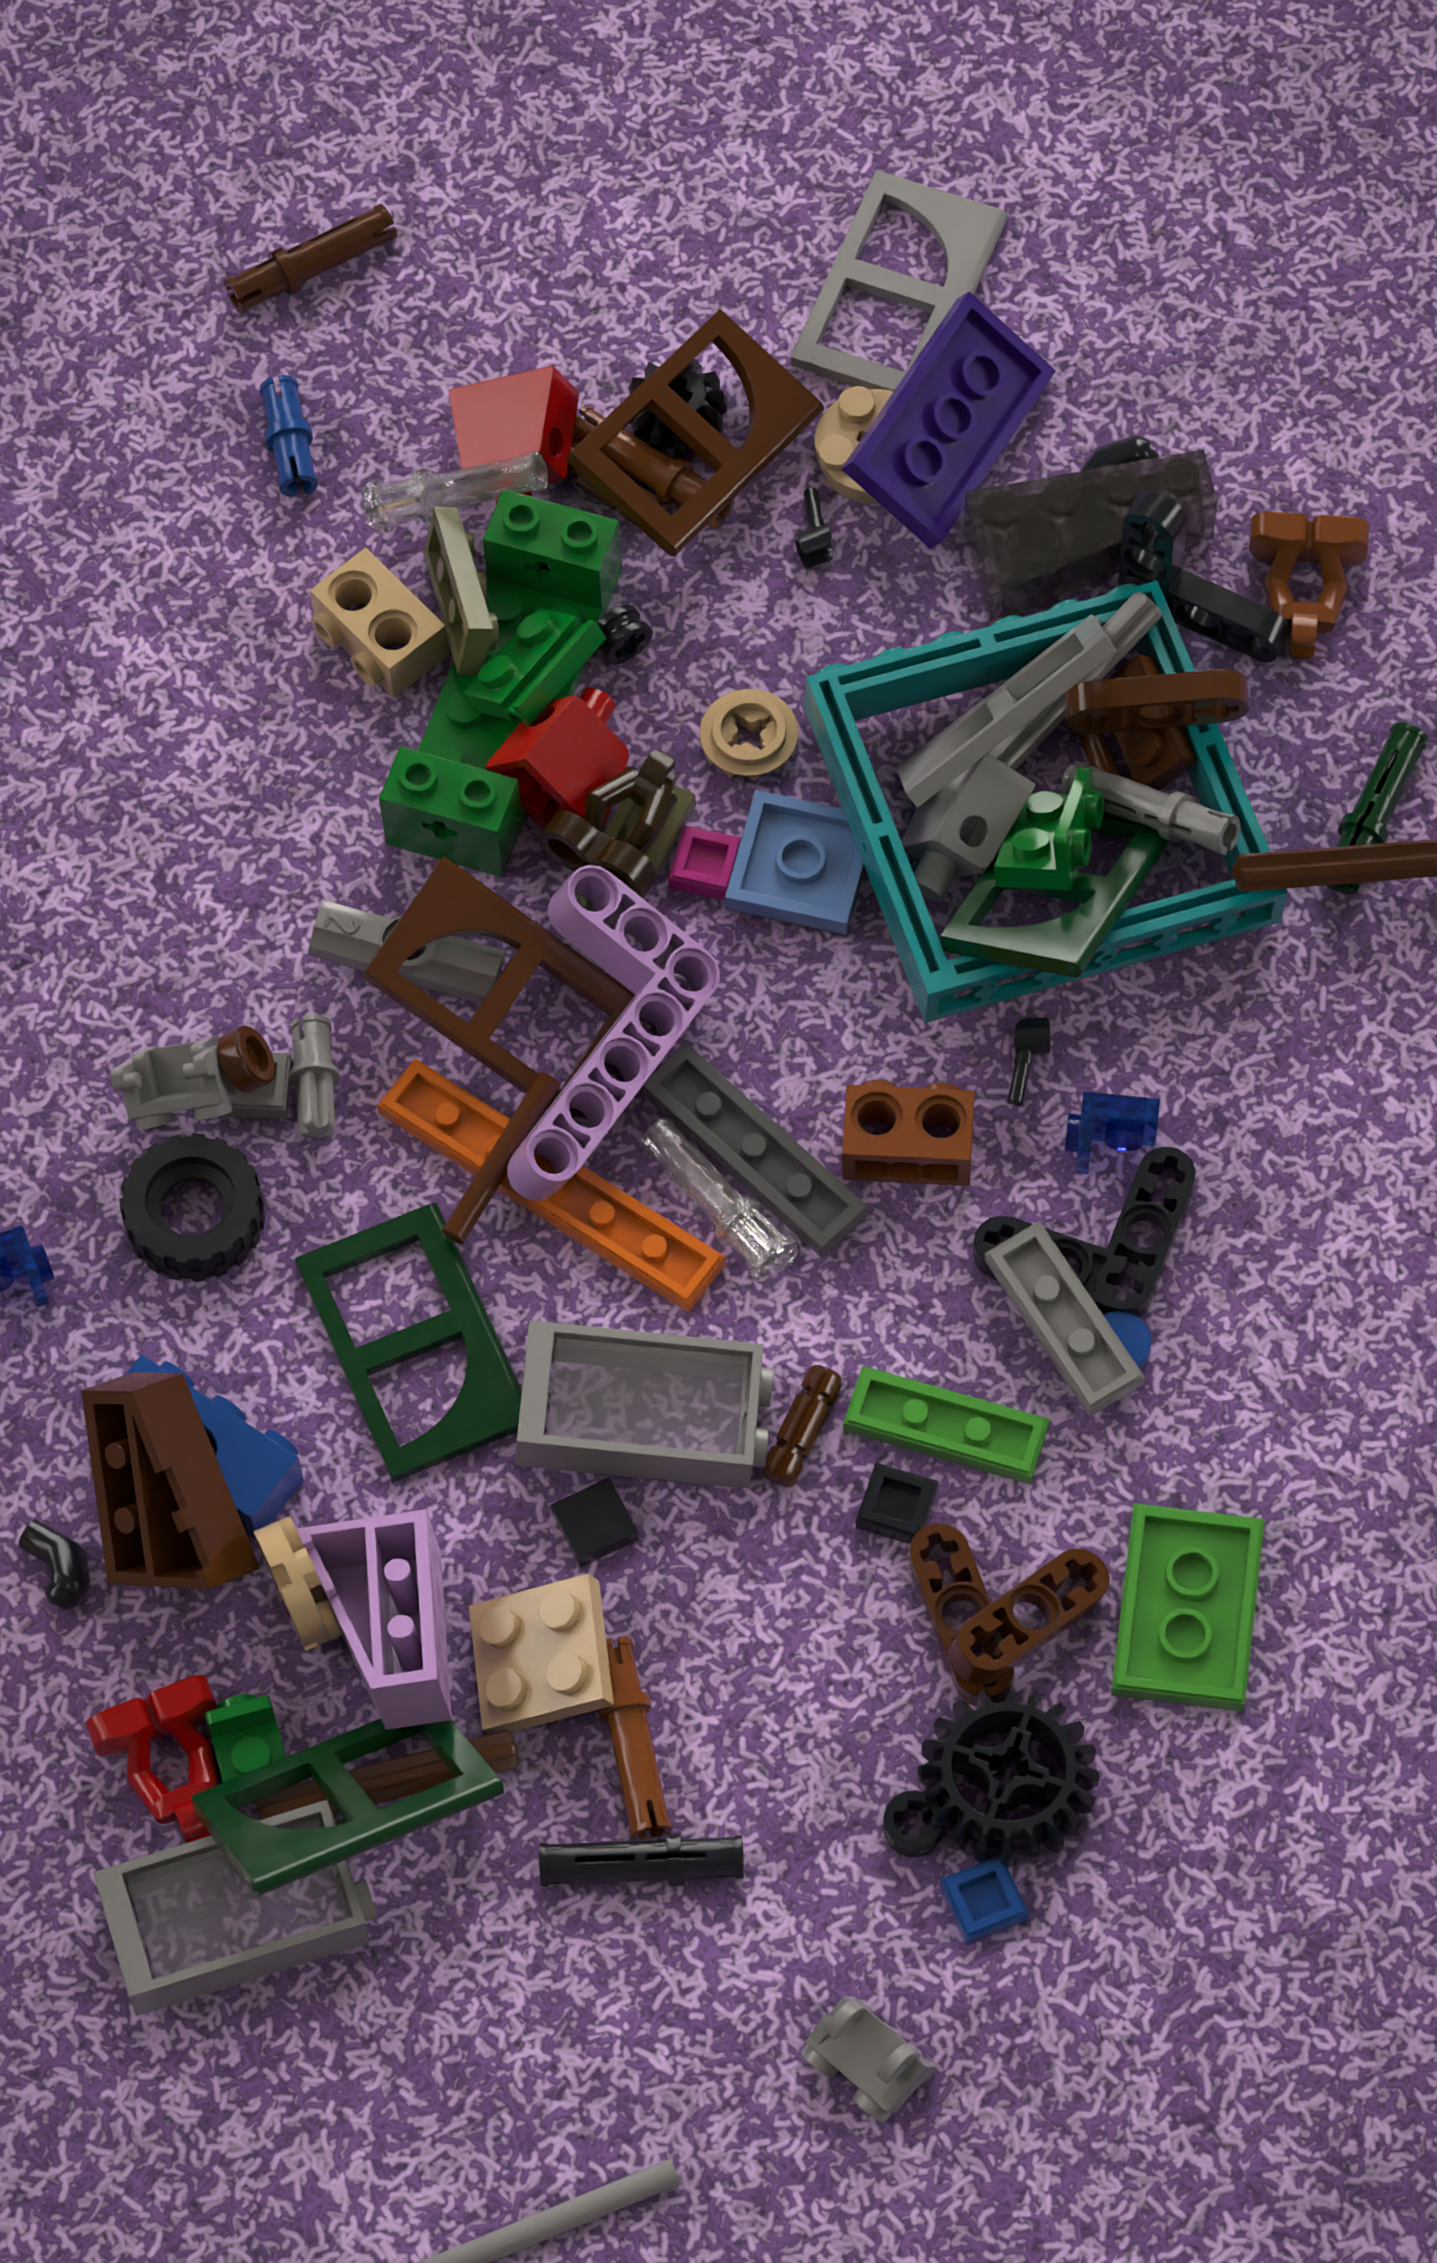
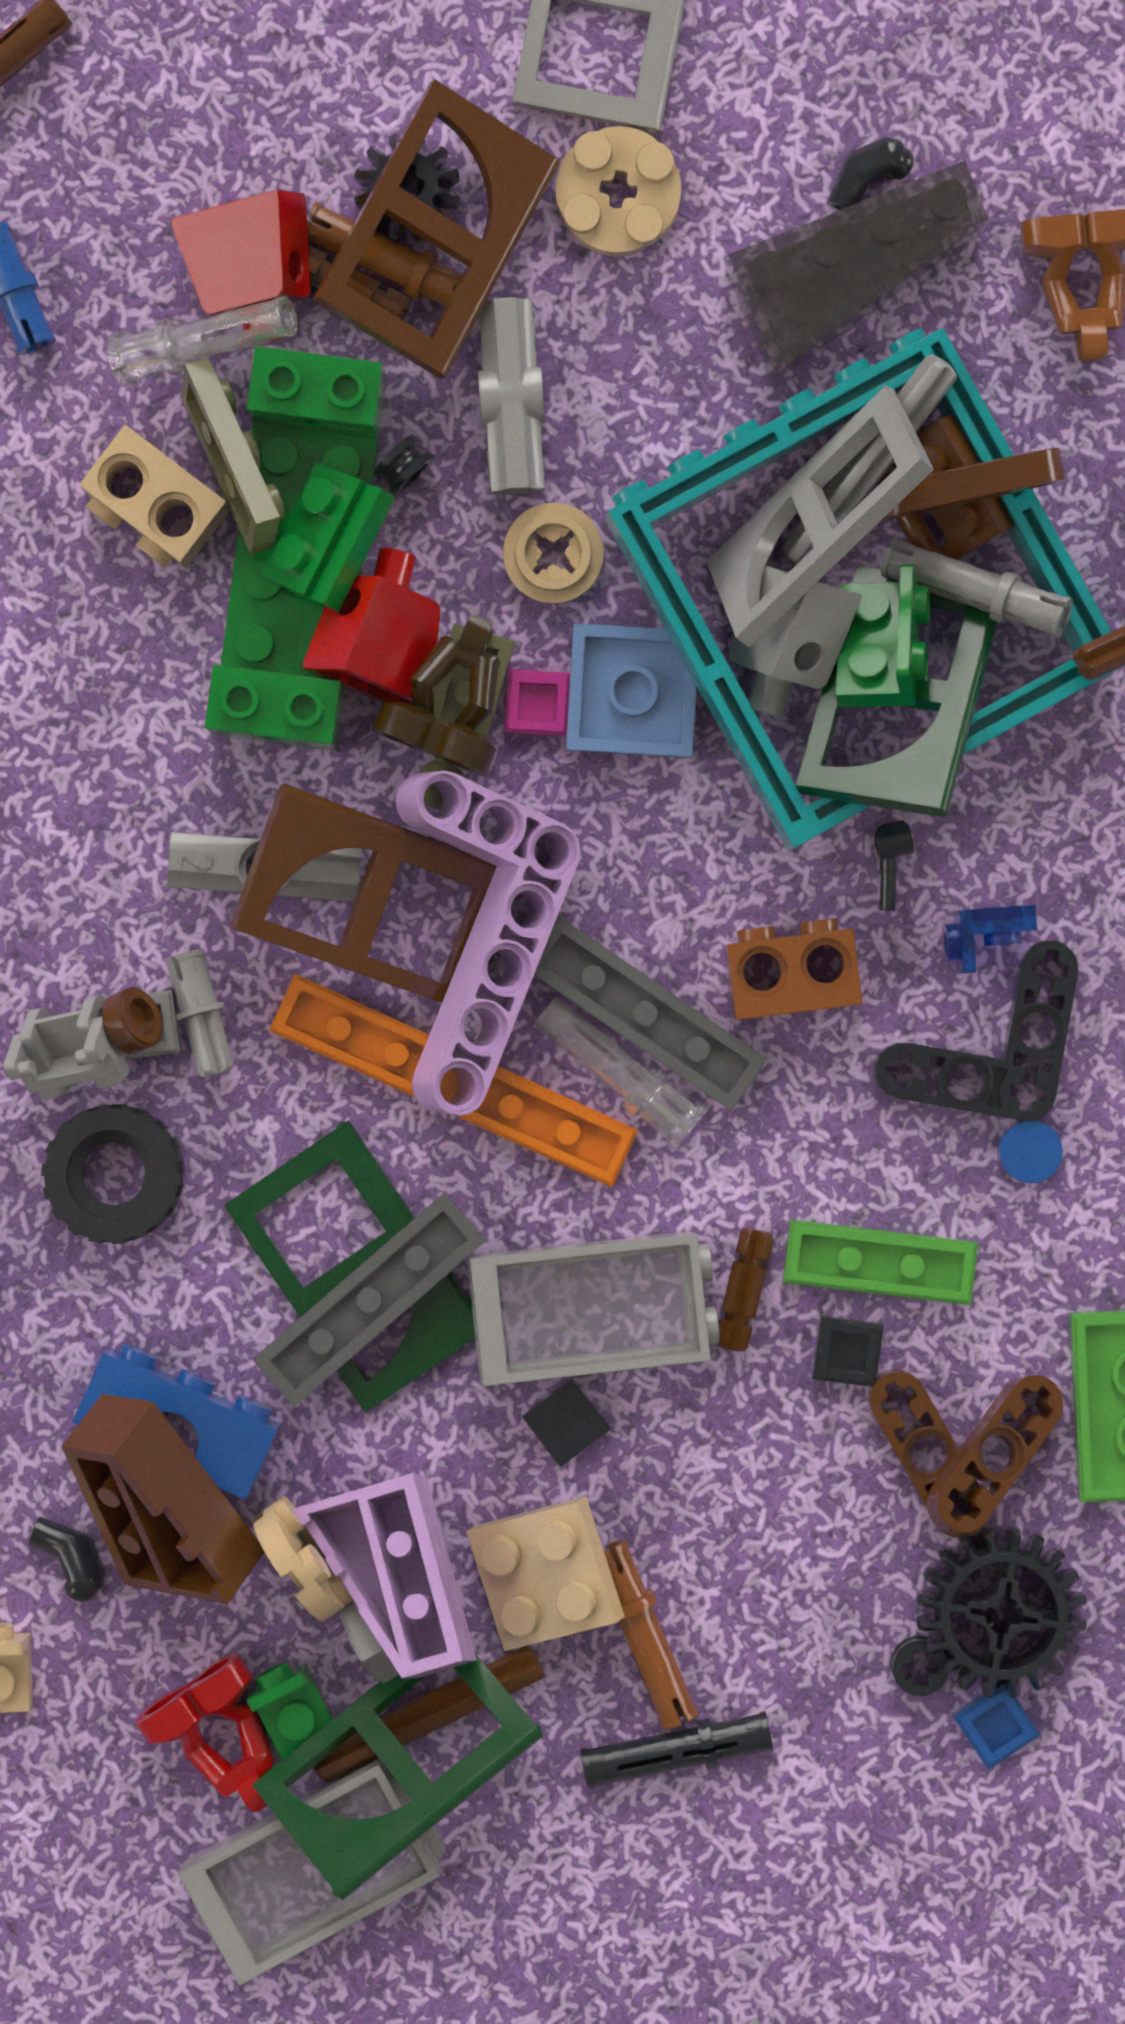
camera: 15 degrees left, 25 degrees up
(345, 1686) = (366, 1645): none -> light grey tile
(418, 1358) = (369, 1299): none -> dark grey plate
(495, 1165) = (402, 1072): reddish brown bar -> none
(737, 594) = (511, 396): none -> light grey piece
(814, 544) = (580, 319): black hand -> none
(869, 2056) = (916, 1902): light grey piece -> none
(948, 419) = (694, 161): dark purple plate -> none
(1064, 1319) = (977, 1144): light grey tile -> none
(1155, 551) = (938, 300): black beam -> none

